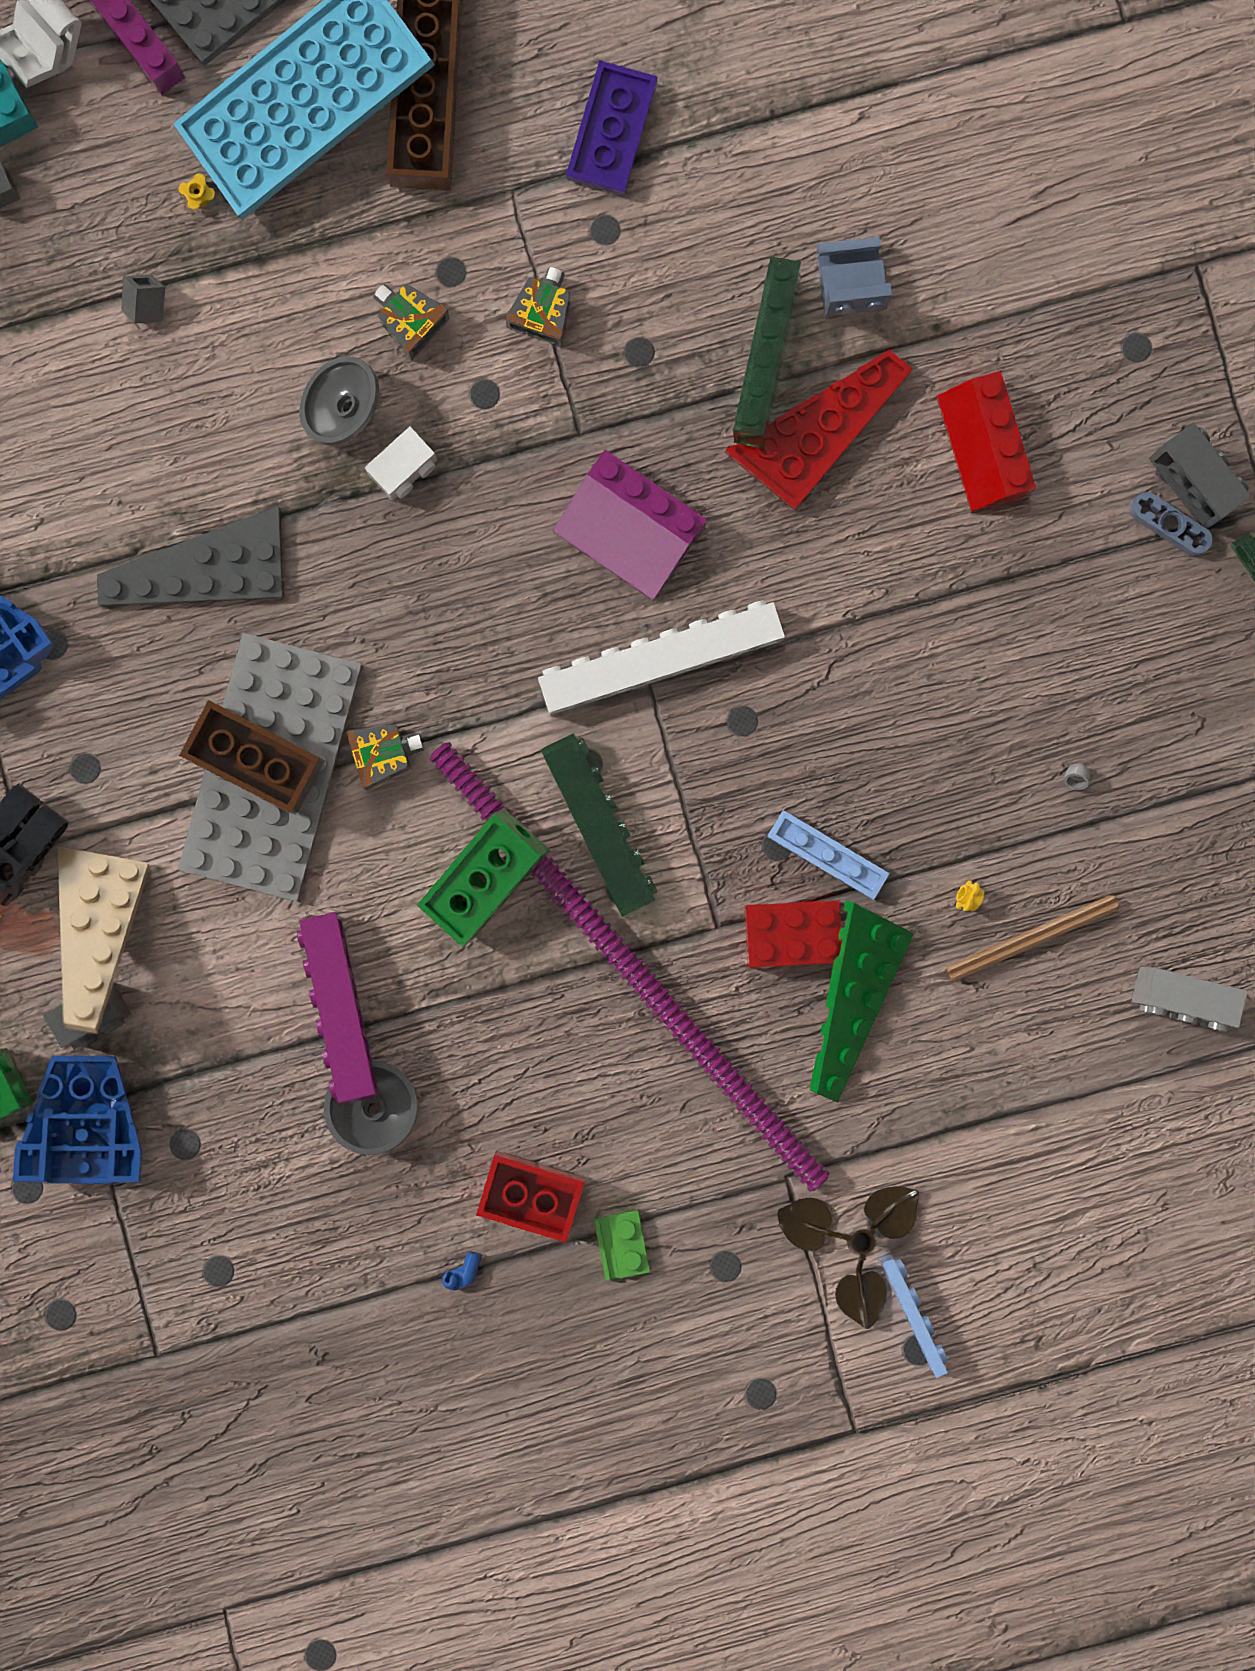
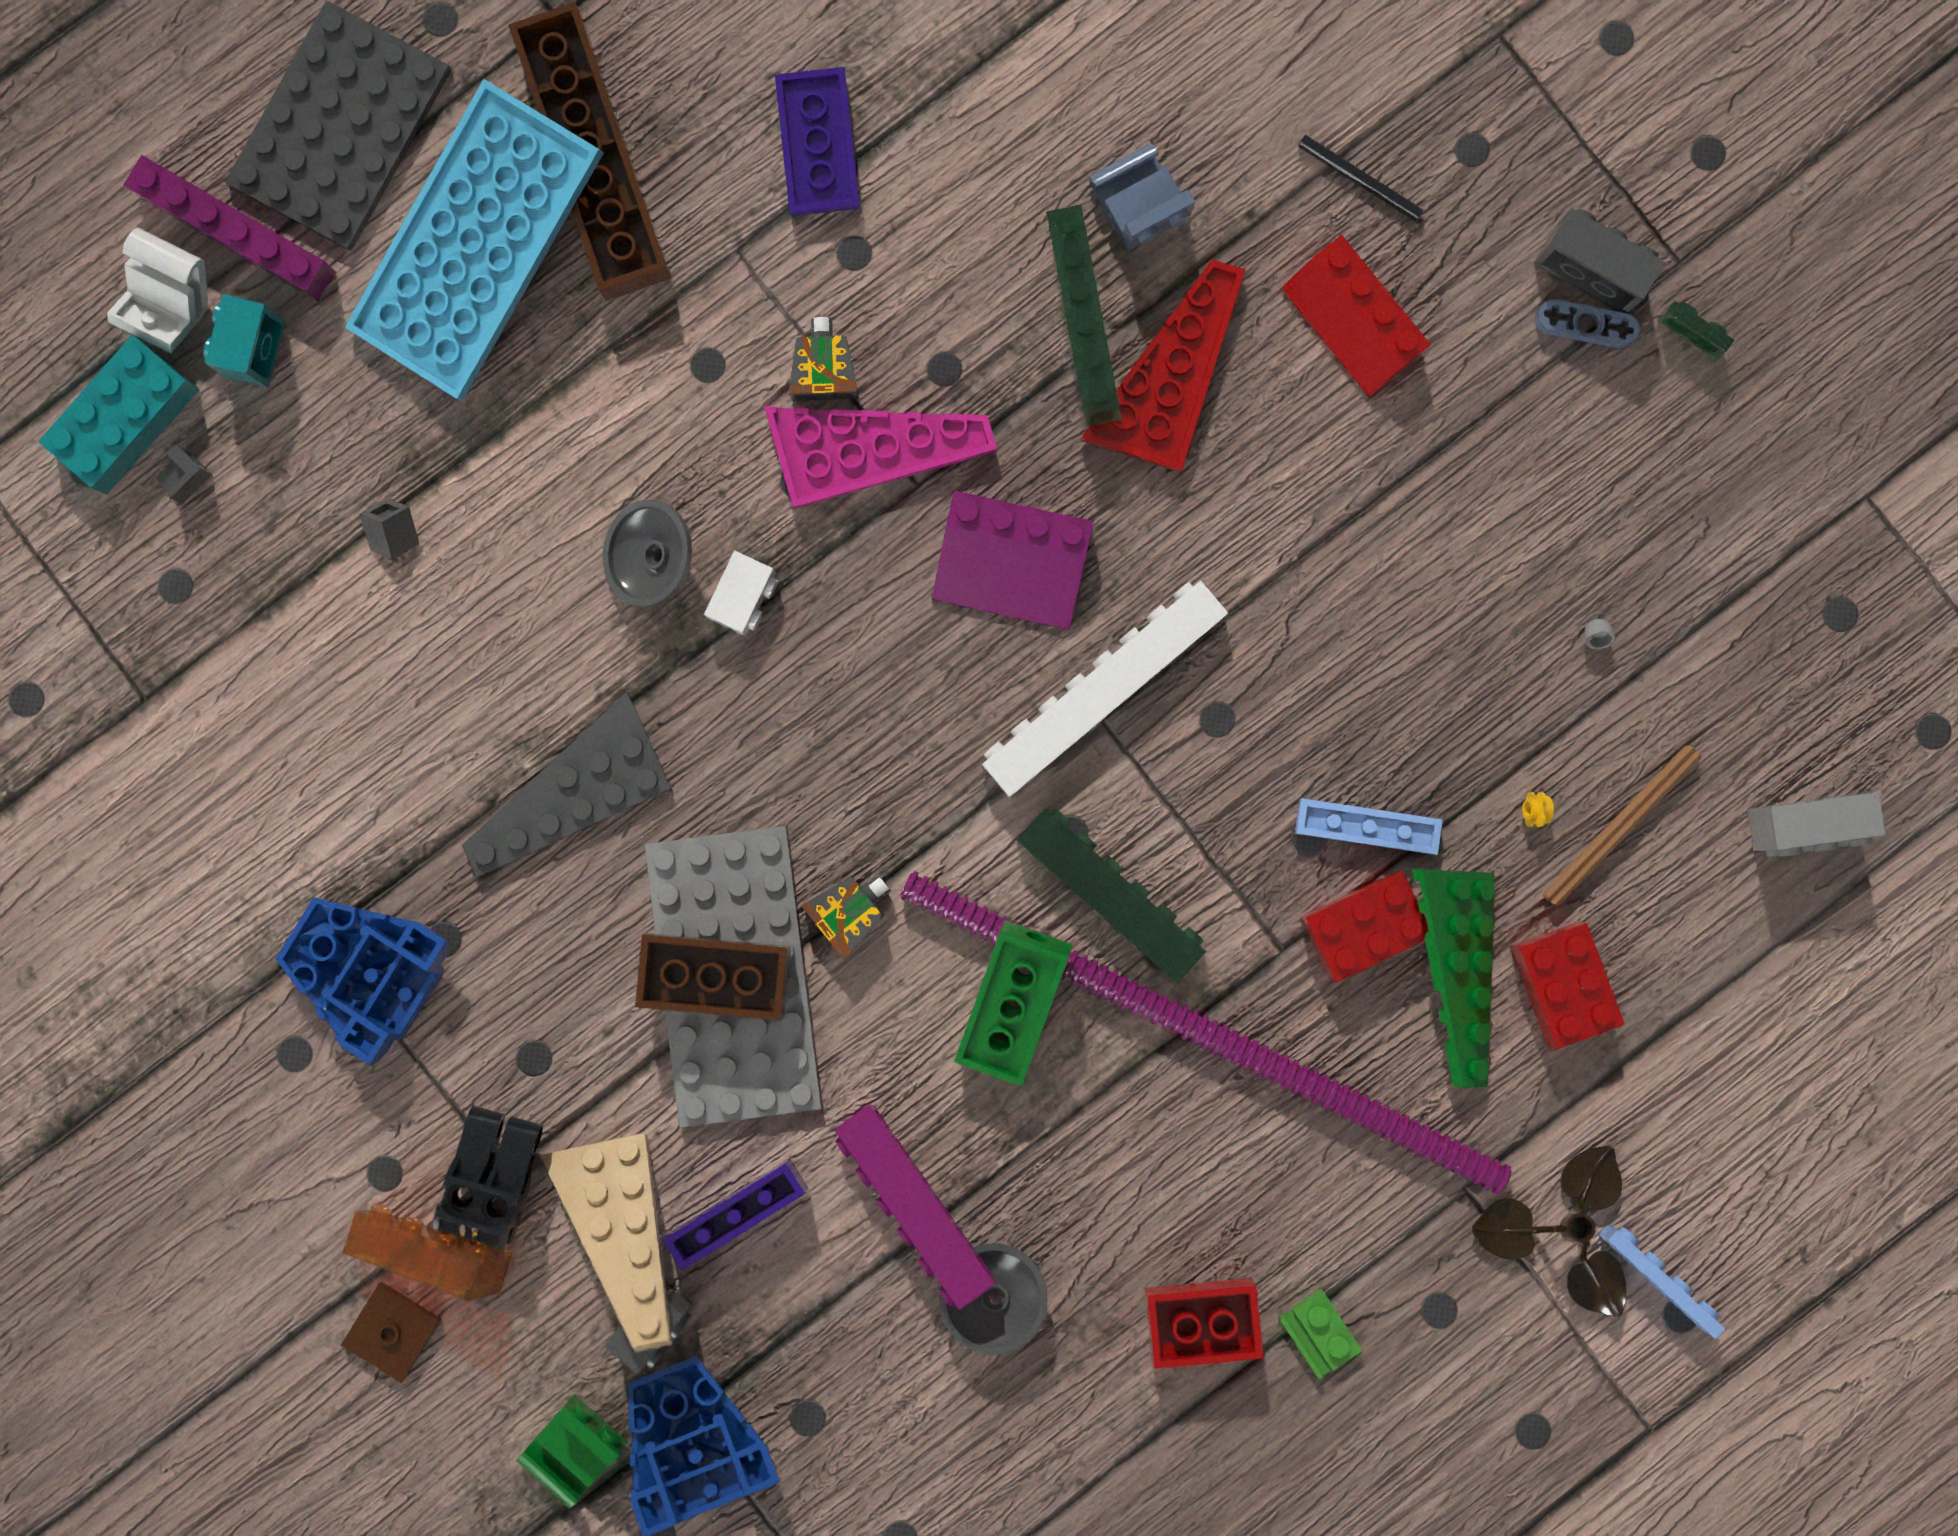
camera: 20 degrees left, 0 degrees up
(88, 101) = (244, 340): none -> teal brick
(193, 956) = (735, 1214): none -> dark purple brick
(198, 200) = (406, 397): yellow plate -> none
(410, 317) = (685, 432): torso -> none
(463, 1275) = (1165, 1435): blue arm -> none
(541, 387) = (854, 450): none -> dark pink wing
(935, 1047) = (1567, 985): none -> red brick
(1036, 333) = (1360, 178): none -> black bar

